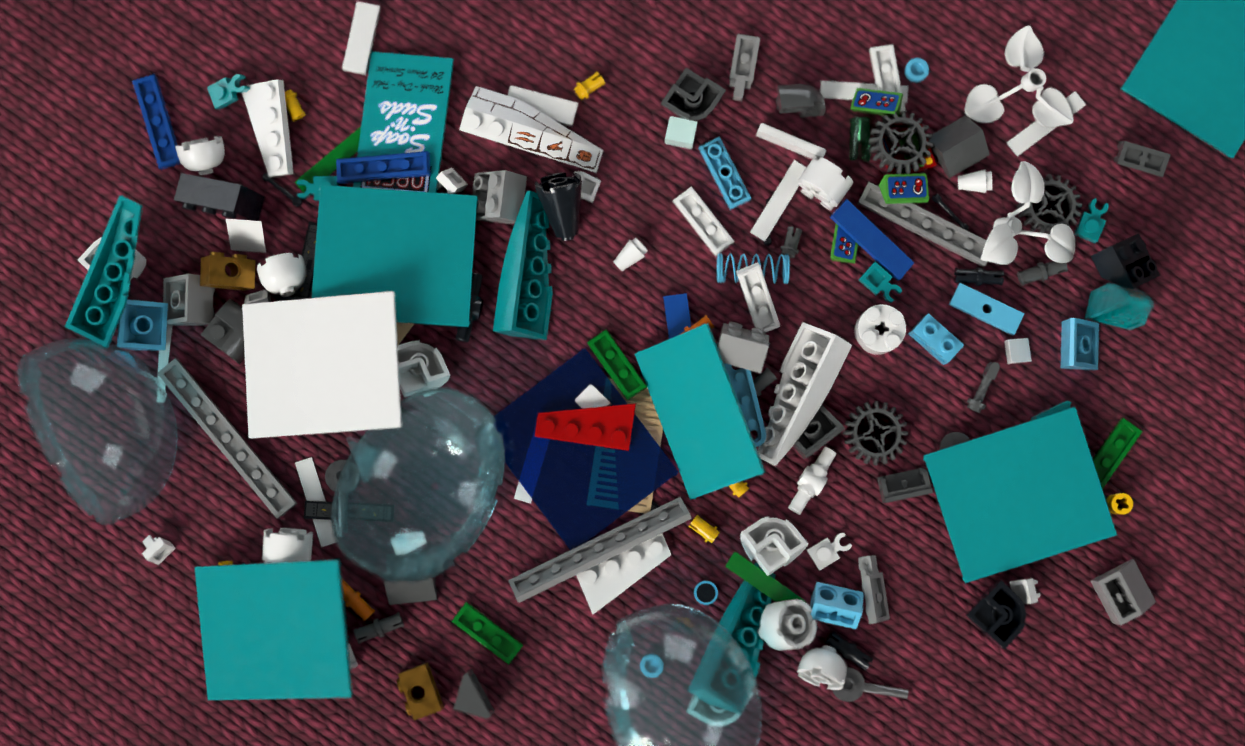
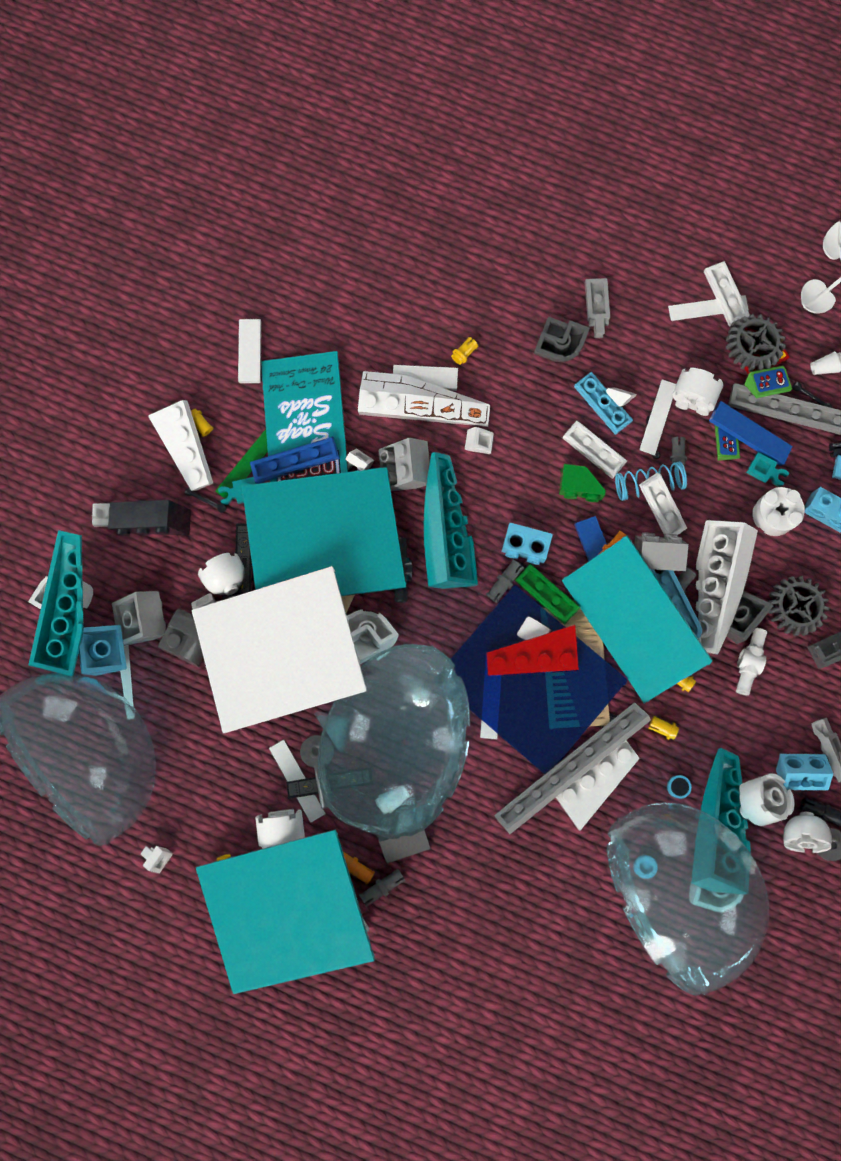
camera: 15 degrees left, 5 degrees down
(157, 121) = (78, 462): blue tile -> none
(169, 182) = (100, 515): none -> white tile
(201, 154) = (125, 483): white cylinder -> none
(214, 273) = (160, 589): pearl gold brick -> none
(224, 91) = (135, 422): teal plate -> none
(227, 438) = (201, 739): light grey plate -> none
(246, 235) = (181, 547): white sticker -> none
(423, 677) = (444, 951): pearl gold brick -> none
(472, 697) = (485, 935): dark grey slope -> none
(487, 633) = (485, 870): green tile -> none
(561, 202) = (465, 457): black cone -> none
(575, 342) = (504, 581): none -> dark grey pin
(609, 302) = (527, 537): none -> medium azure brick
(630, 254) = (537, 491): white cone -> none
(677, 254) = (580, 482): none -> green slope
(680, 132) = (557, 374): light aqua panel -> none
(742, 169) = (620, 396): none -> white slope
(759, 579) = (728, 762): green sticker -> none
(772, 543) = (731, 727): white brick -> none
(790, 142) = (655, 363): white tile -> none
(800, 99) = (657, 322): dark grey brick -> none
(825, 552) = (779, 724): white plate -> none
(859, 135) = (716, 347): clear green hinge -> none
(877, 102) = (723, 313): slope -> none
(916, 70) = (750, 279): medium azure tile -> none
(959, 146) = (806, 336): dark grey slope -> none

